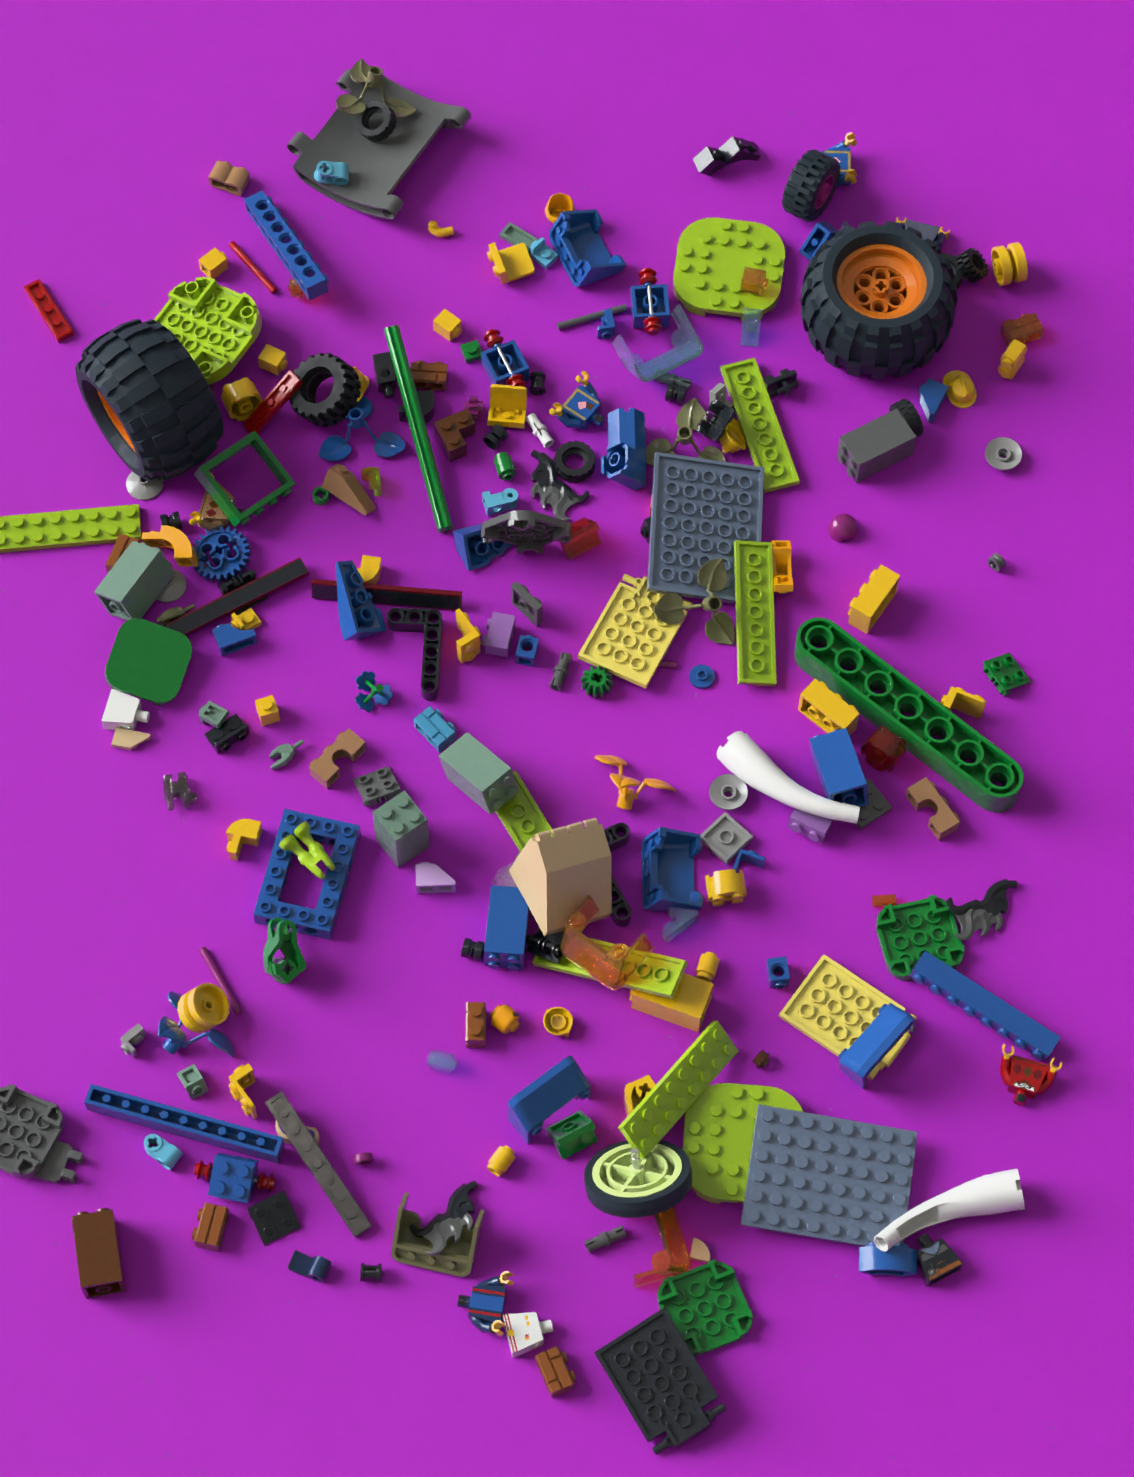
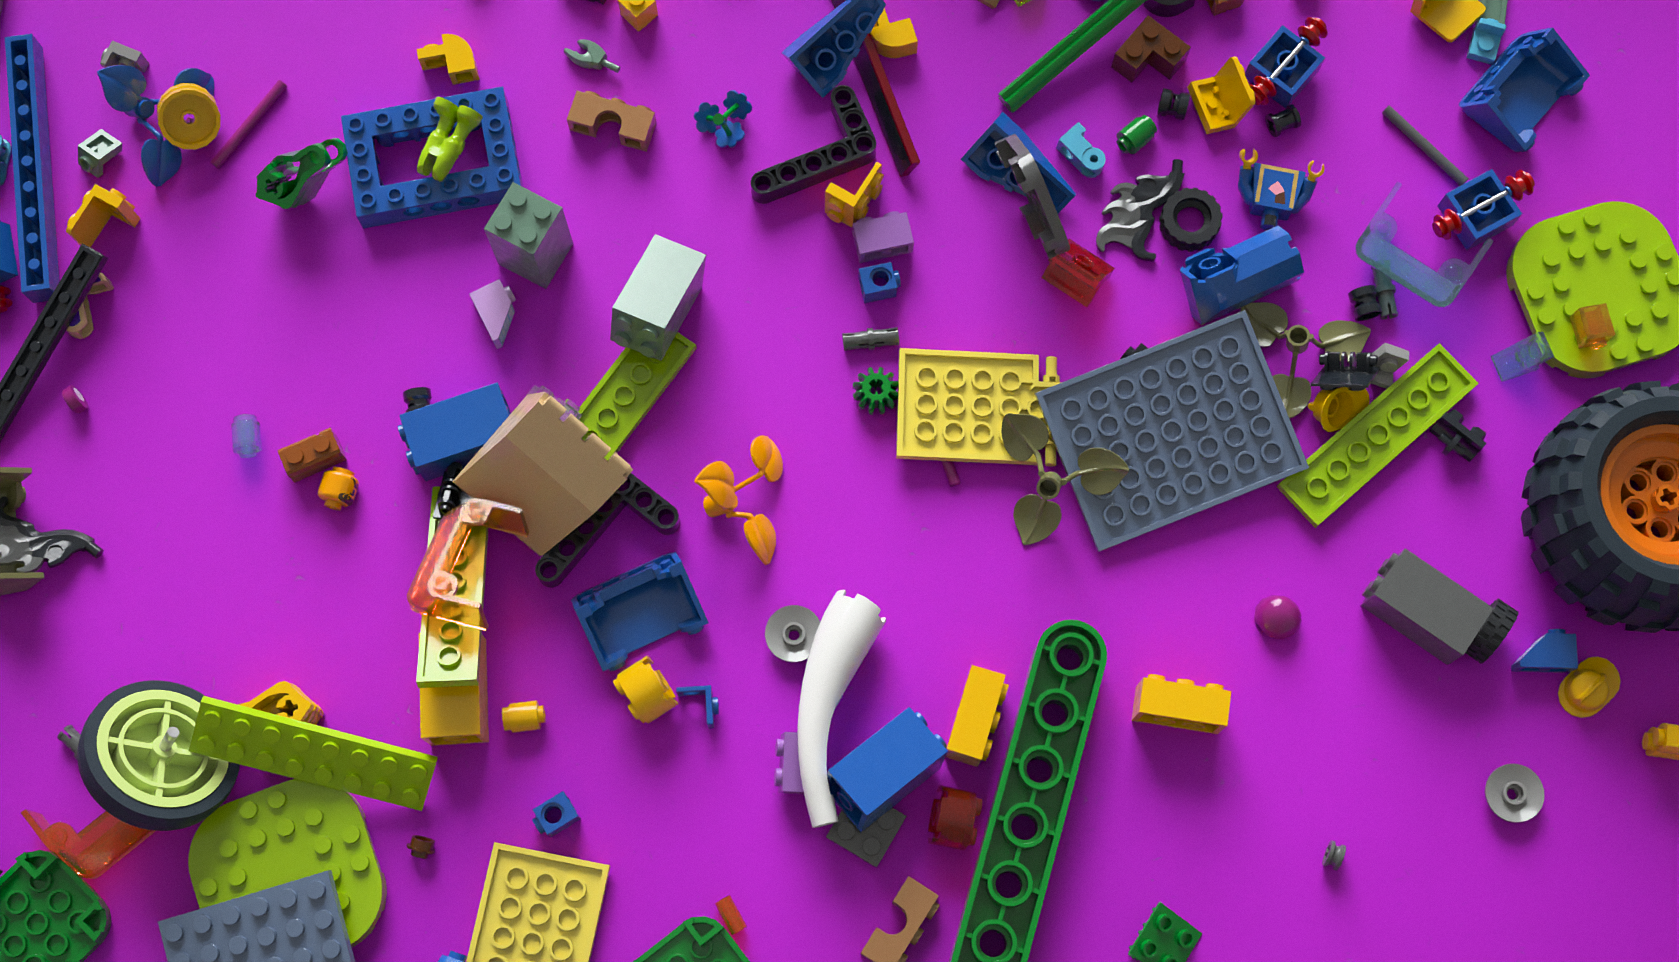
camera: 65 degrees right, 10 degrees up
(377, 785) = (596, 185): dark grey hinge -> none
(435, 728) = (709, 219): dark azure brick -> none
(471, 351) = (1288, 16): green plate -> none
(474, 406) = (1202, 57): magenta gear -> none
(501, 1160) = (138, 570): yellow brick -> none
(526, 603) = (943, 247): dark grey plate -> none
(543, 436) = (1214, 155): white pin -> none
(546, 1096) = (236, 592): blue windscreen -> none
(558, 203) = (1569, 24): light orange hair -> none
(558, 1021) = (361, 556): yellow hat -> none
(572, 1134) = (210, 642): green bracket -> none
(607, 329) = (1424, 169): blue bracket -> none
(682, 920) = (578, 654): clear light blue slope -> none
(699, 1251) = (115, 882): tan tile -> none
(701, 676) = (954, 524): blue piece -> none
(725, 838) = (725, 659): light grey plate -> none
(755, 613) = (1078, 552): lime plate -> none
(782, 566) = (1168, 559): light orange arch -> none
(964, 702) = (1066, 878): yellow bracket -> none

